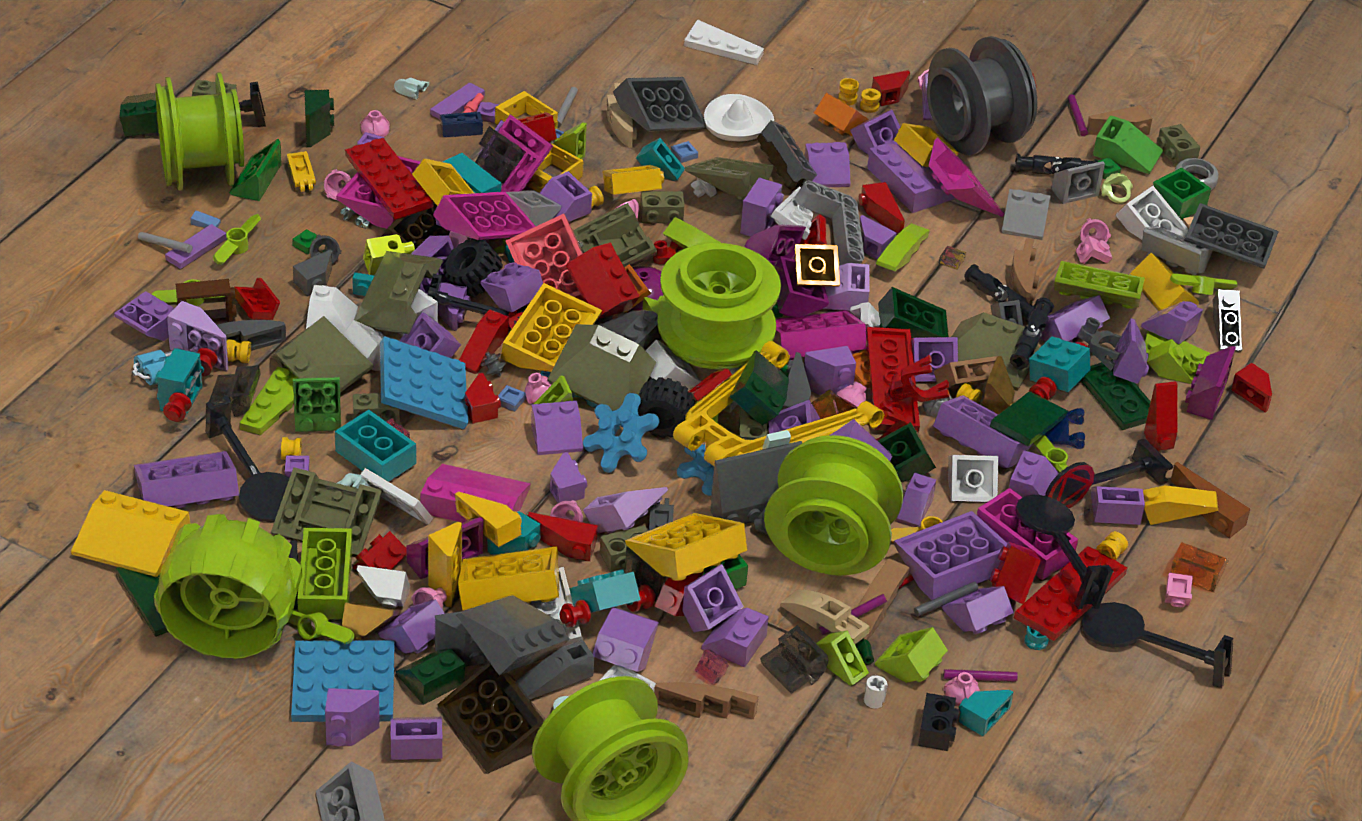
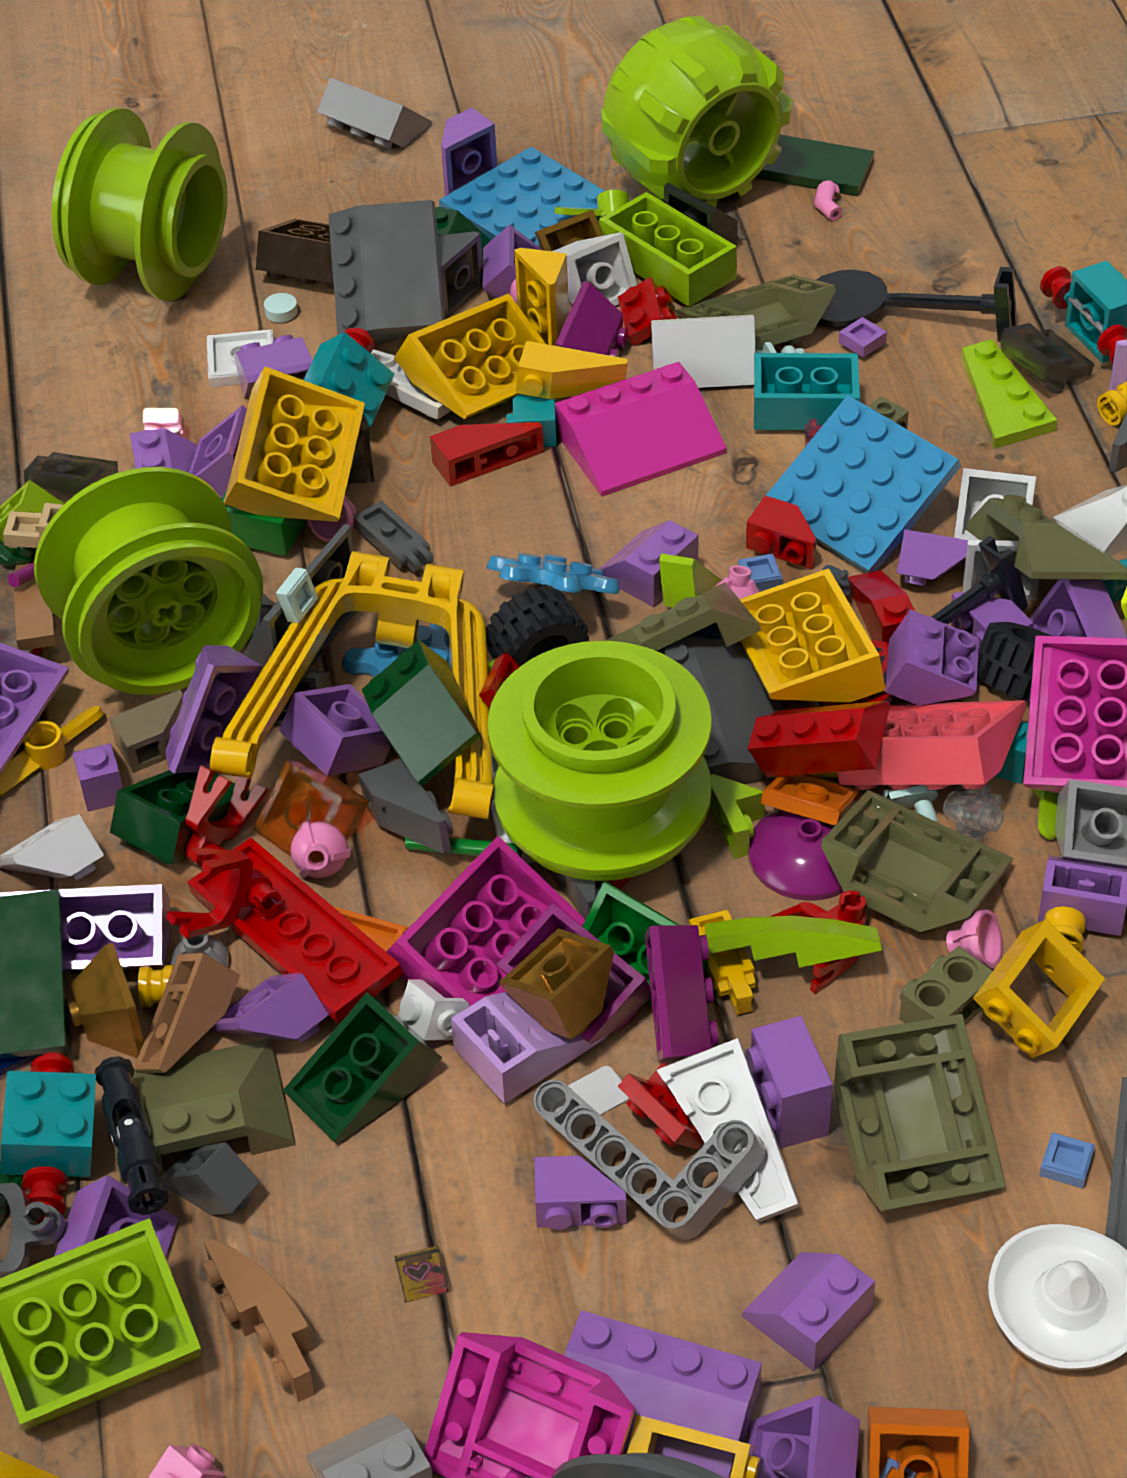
camera: 145 degrees right, 5 degrees up
(129, 533) = (906, 177): yellow slope -> none
(188, 480) = (947, 249): medium lavender slope -> none
(291, 447) = (895, 345): yellow wheel -> none
(317, 404) = (929, 371): bright green slope -> none
(323, 353) = (1021, 437): olive slope -> none
(416, 738) = (388, 178): medium lavender slope -> none
(559, 670) = (313, 319): dark grey slope -> none
(563, 508) = (504, 469): bright pink piece -> none
(566, 480) = (558, 508): medium lavender slope -> none
(614, 547) = (396, 477): olive brick -> none
(621, 509) = (445, 501): lavender slope -> none
(660, 156) = (1062, 1086): teal slope -> none
(696, 698) = (142, 387): medium nougat slope -> none
(785, 155) = (886, 1249): dark grey piece -> none
(829, 369) = (380, 854): medium lavender slope -> none
(881, 206) = (626, 1277): red slope -> none
(902, 247) = (510, 1211): lime slope -> none
(992, 286) = (310, 1242): black piece -> none

